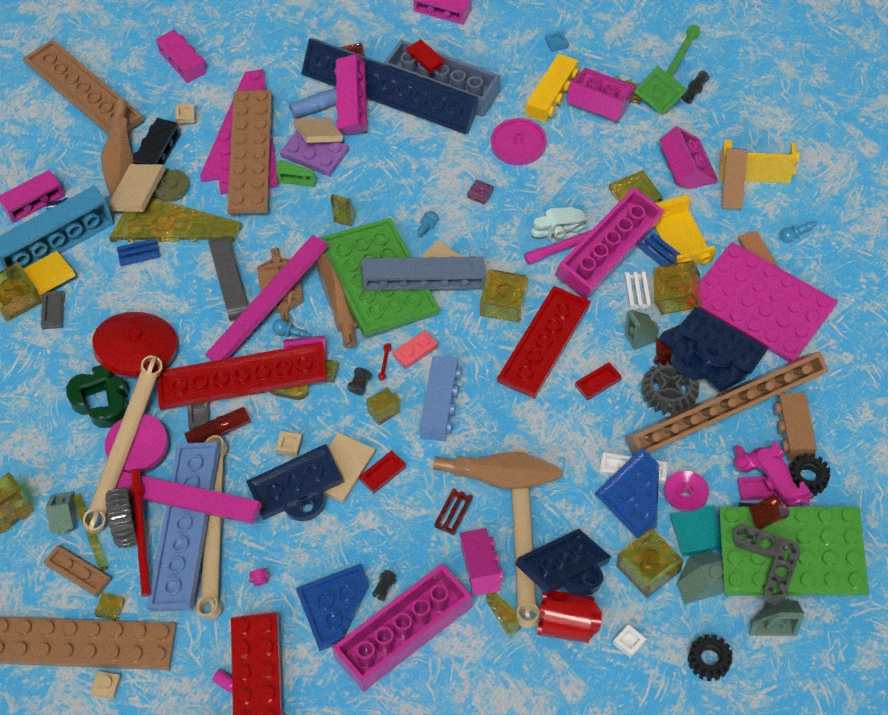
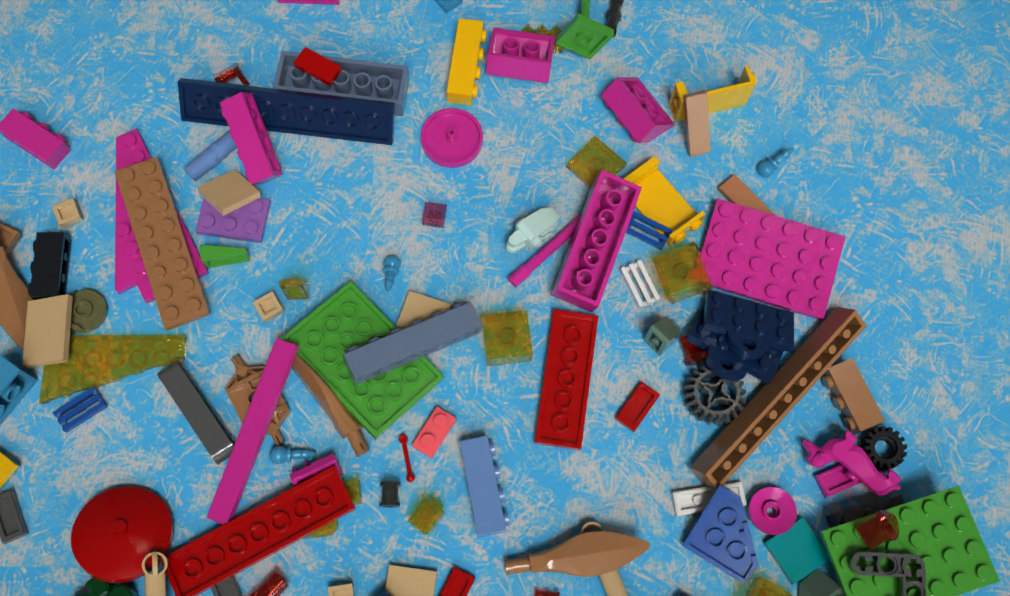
camera: 25 degrees left, 15 degrees up
(316, 220) = (268, 307): none -> tan plate

